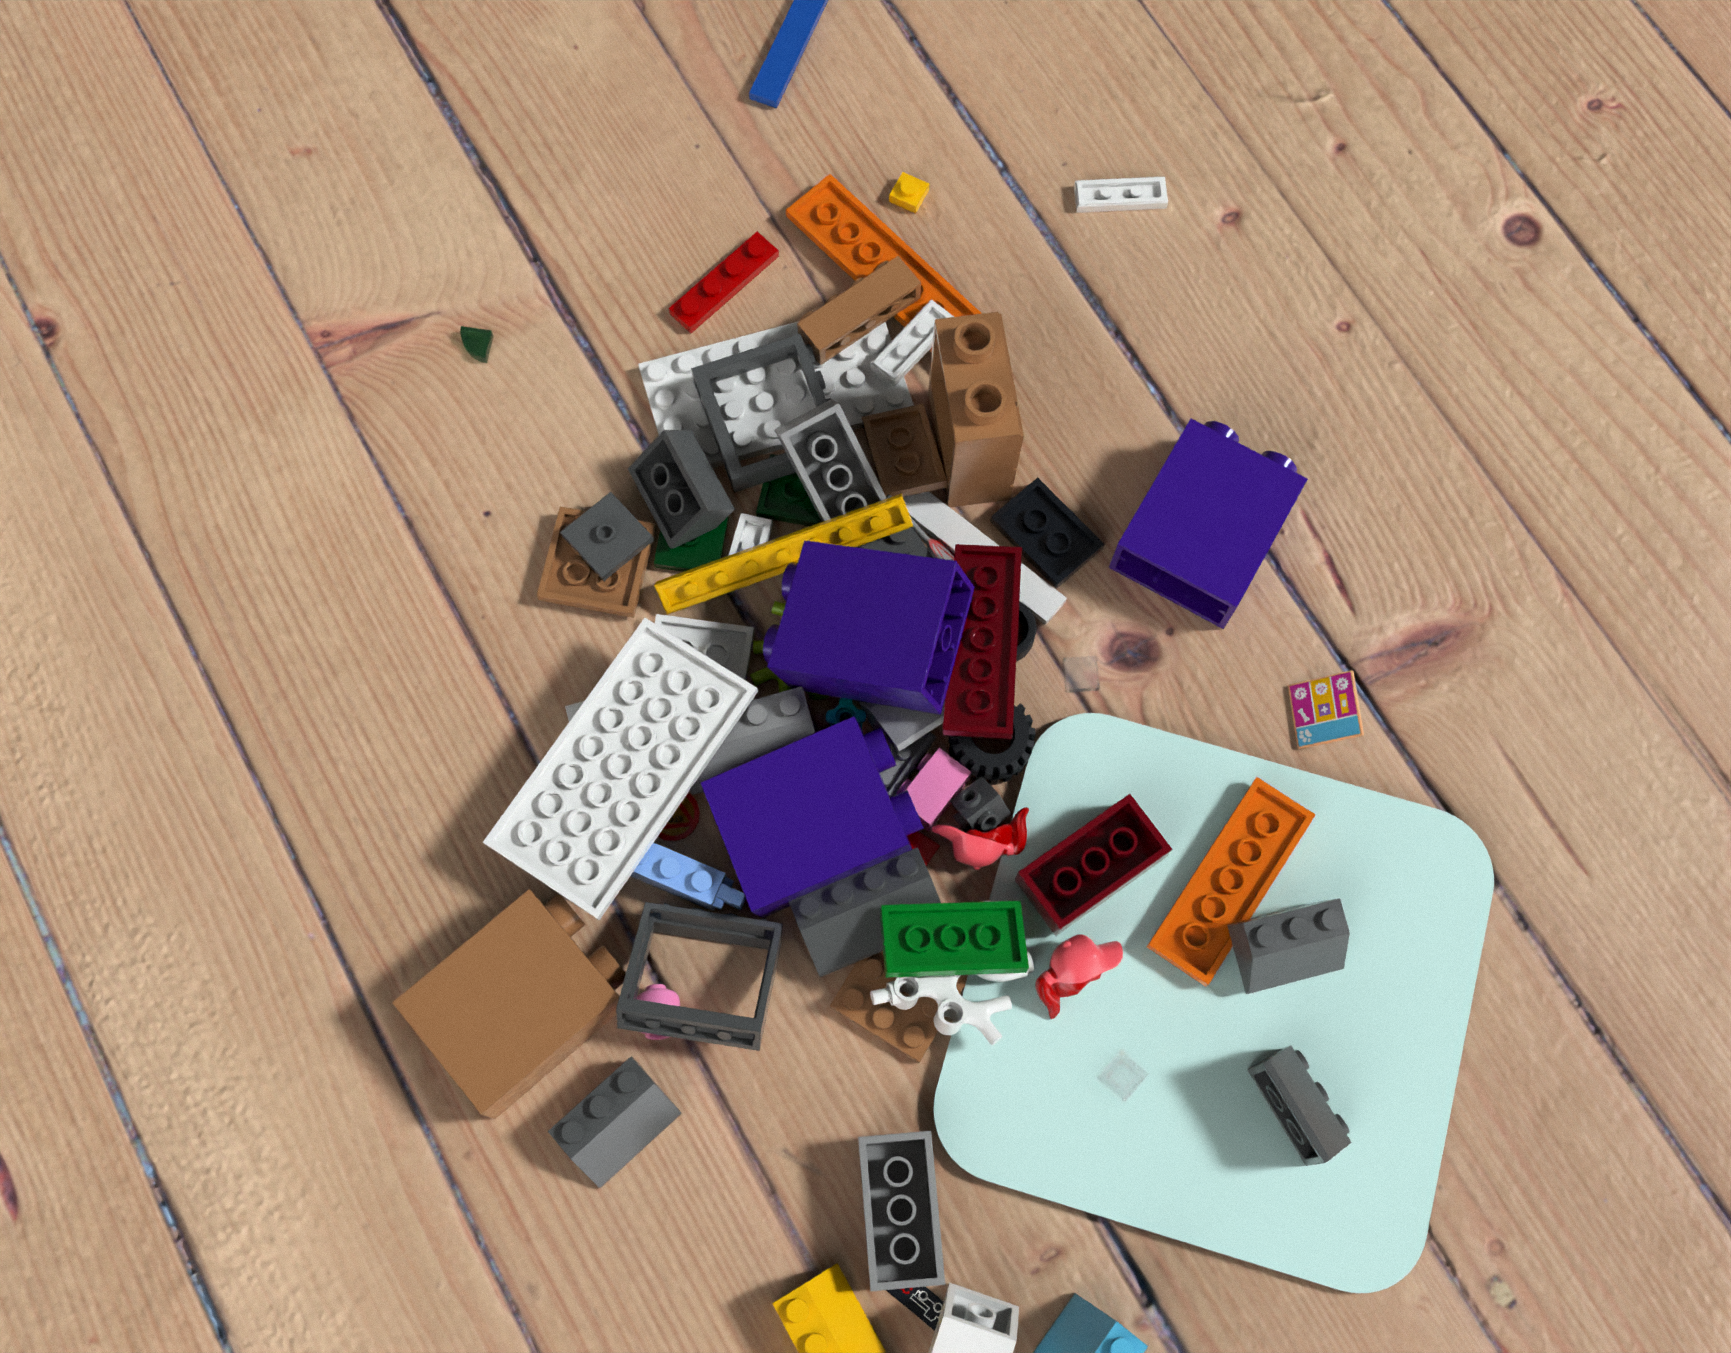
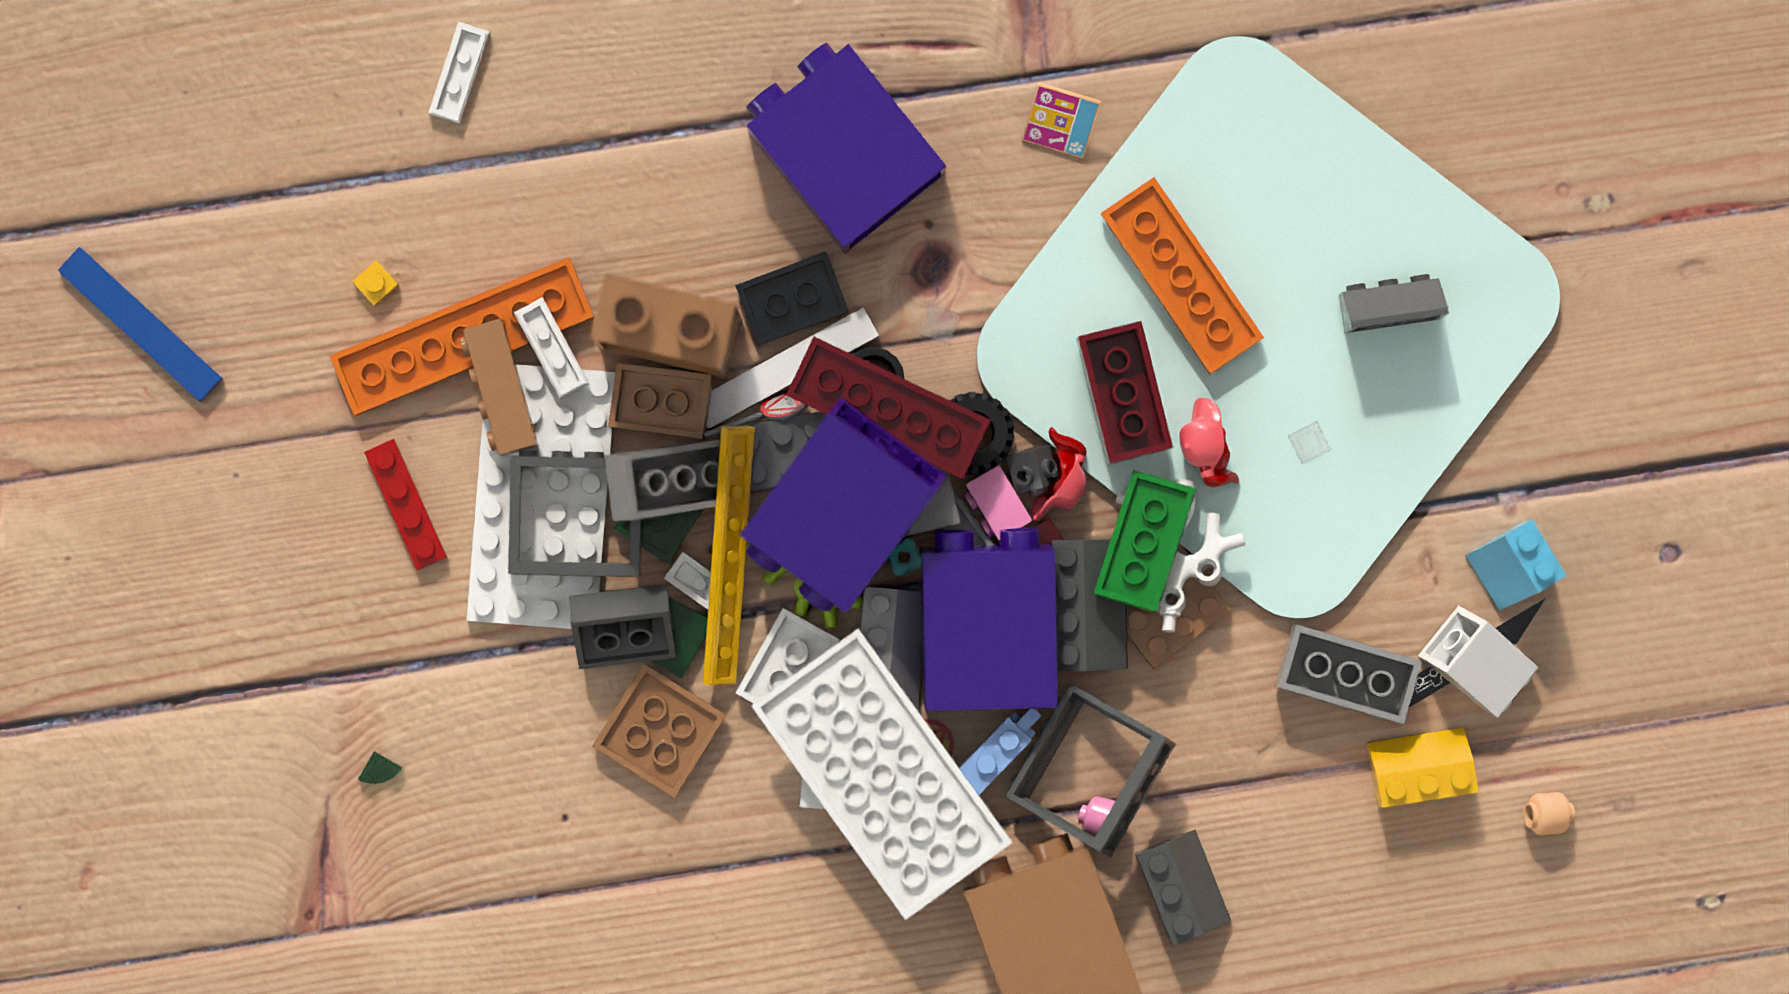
camera: 70 degrees left, 15 degrees up
(607, 536) = (642, 712): dark grey plate -> none
(1290, 945) = (1257, 252): dark grey slope -> none

